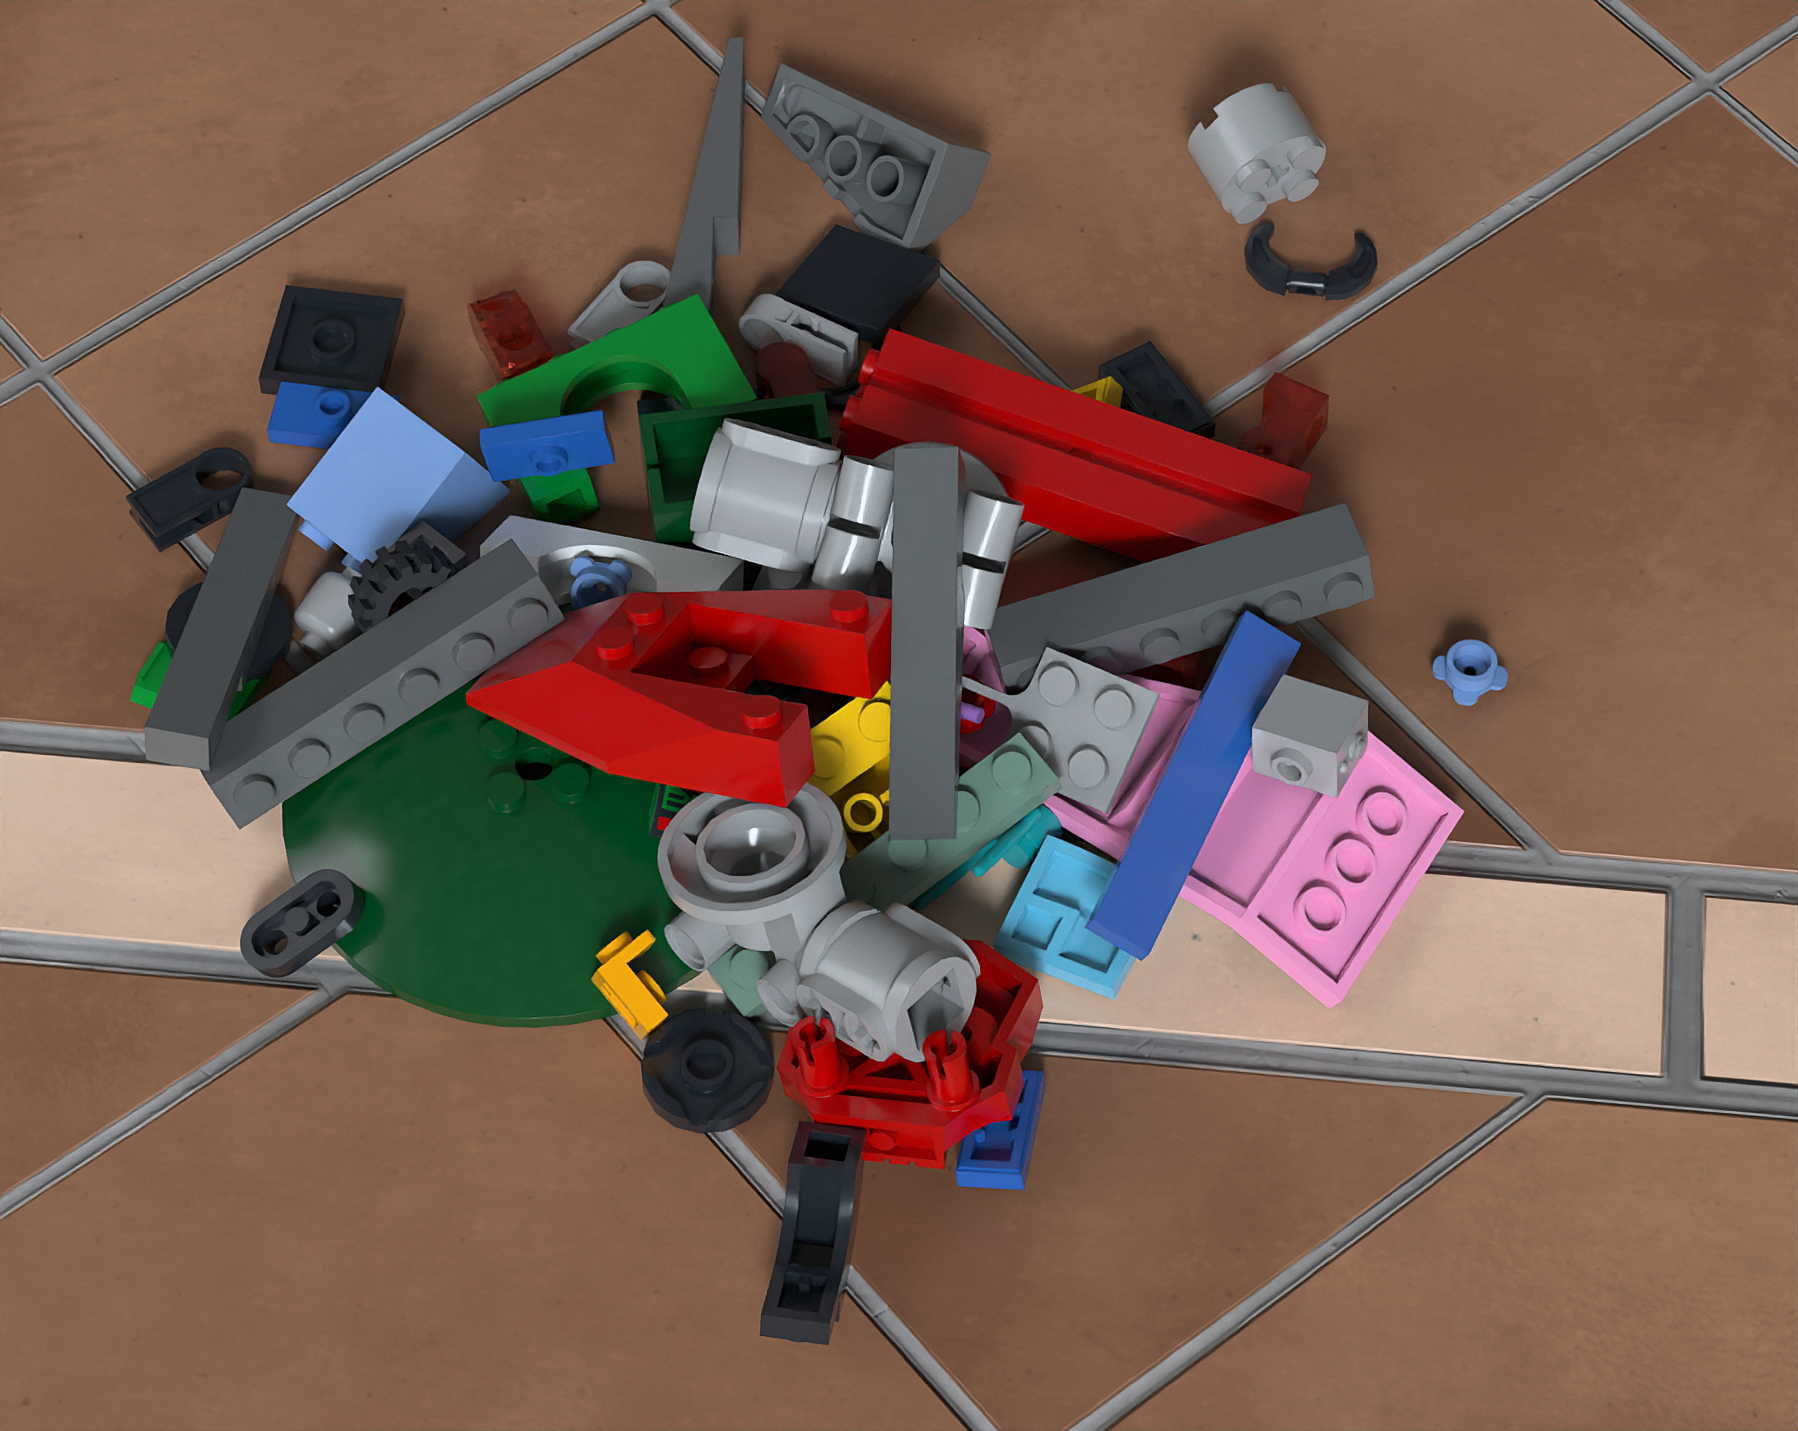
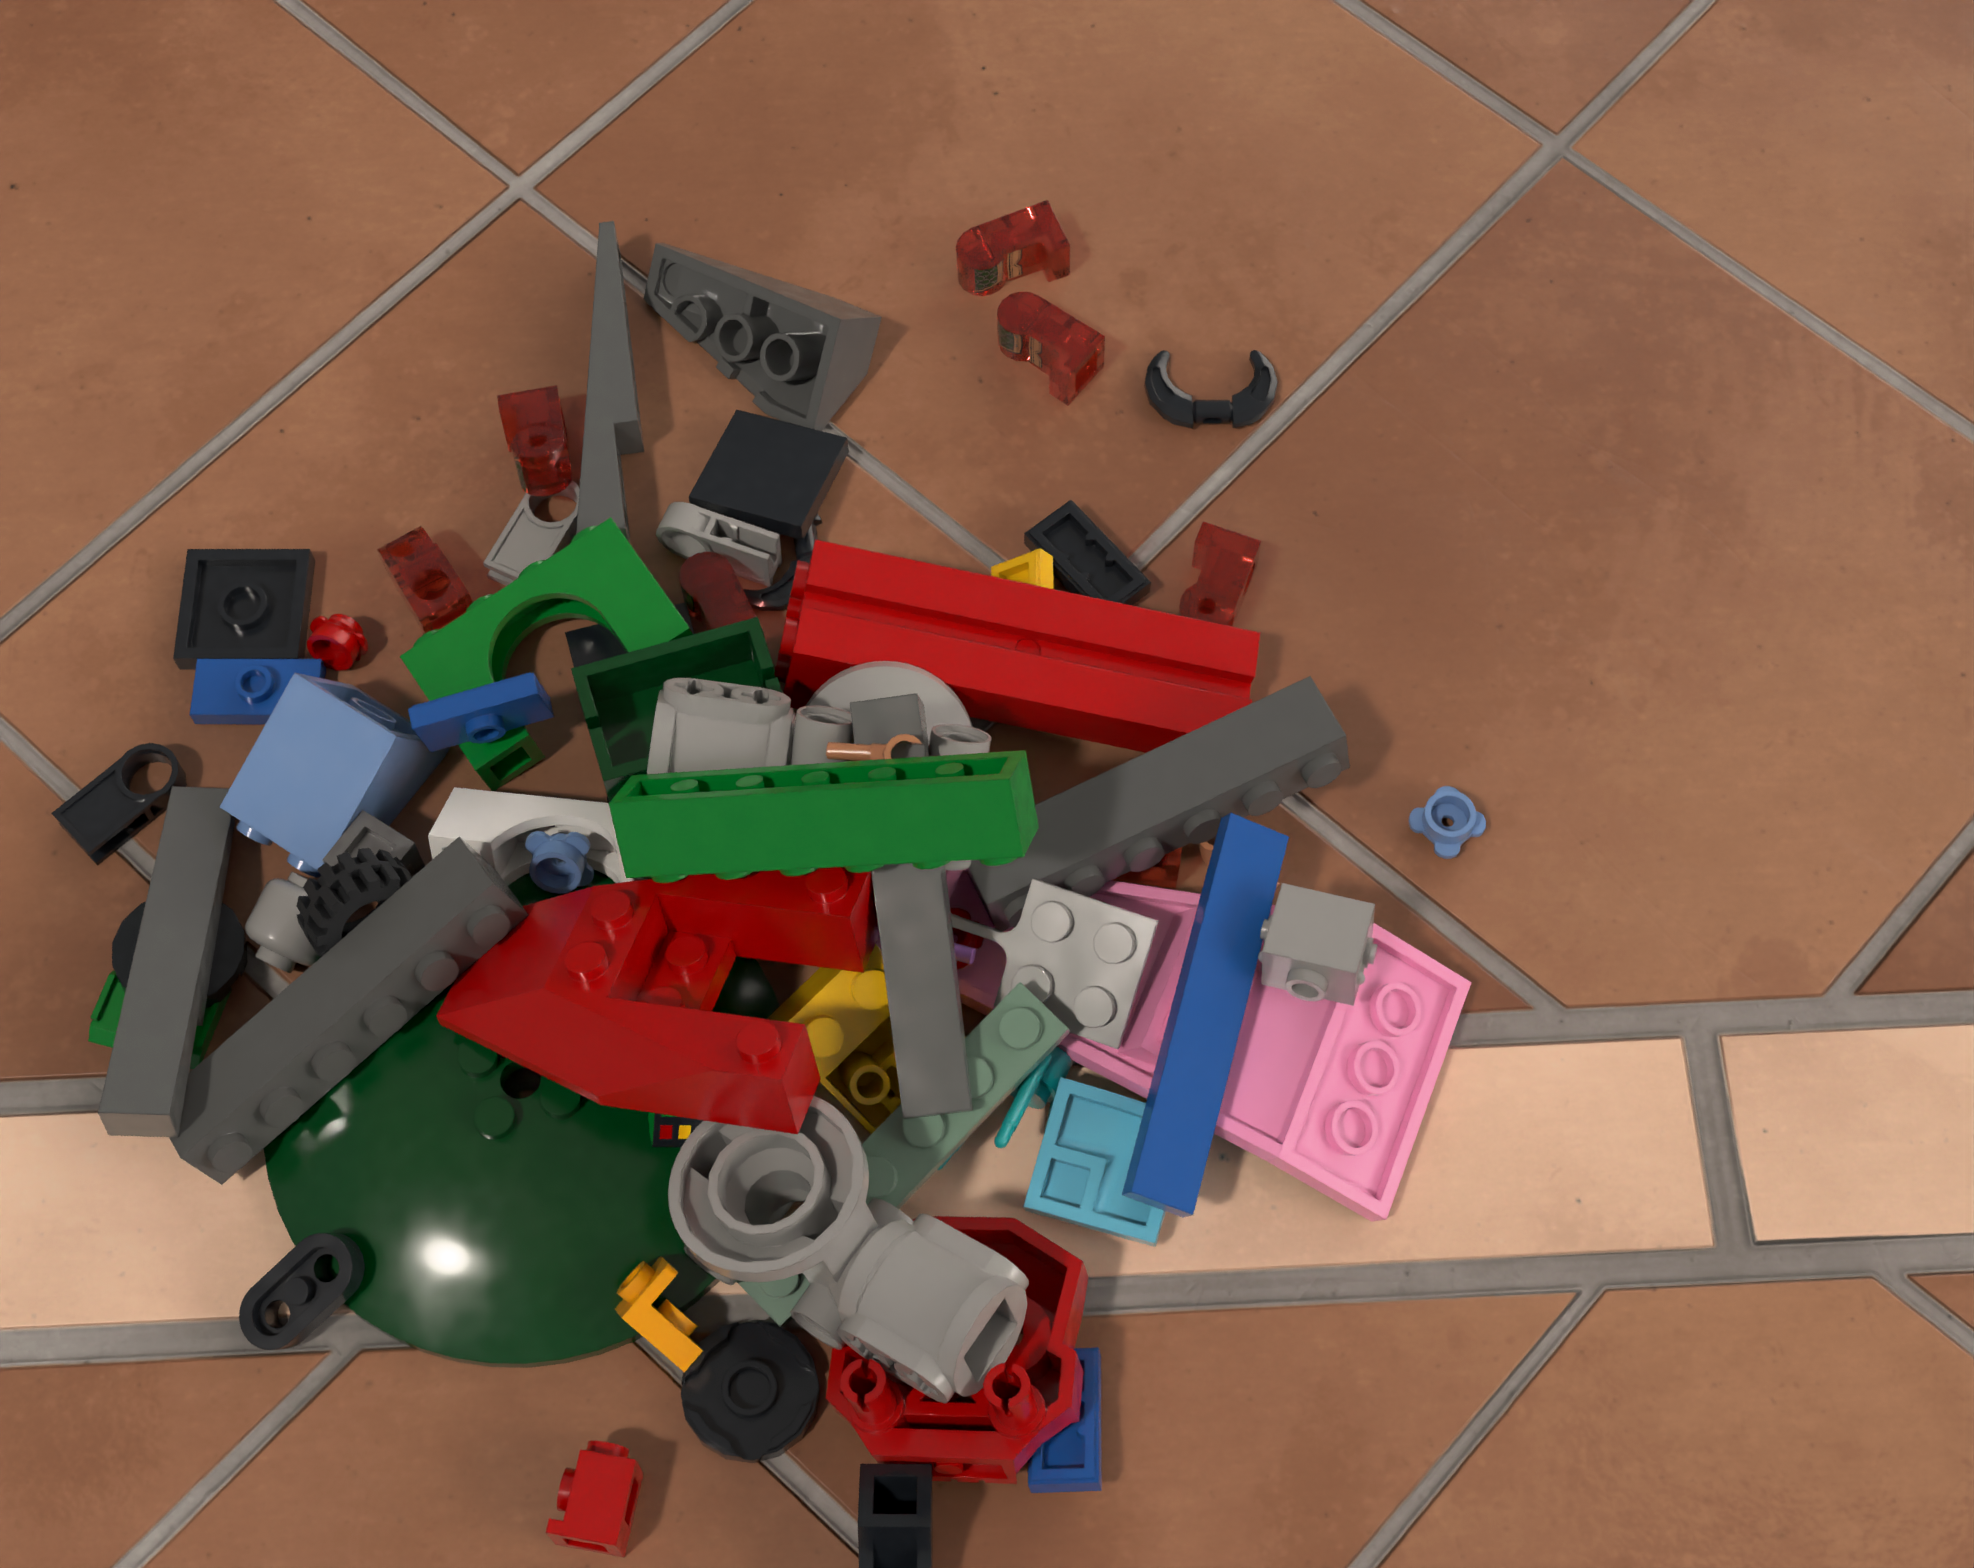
camera: 10 degrees left, 10 degrees up
(416, 382) = (336, 641): none -> red plate
(549, 1136) = (598, 1500): none -> red brick
(637, 225) = (537, 439): none -> clear red leg
(855, 541) = (826, 816): none -> green brick
(915, 494) = (861, 752): none -> nougat hand
(1132, 112) = (1012, 249): none -> clear red leg
(1157, 199) = (1051, 341): none -> clear red leg
(1258, 151) = (1145, 281): light grey brick -> none

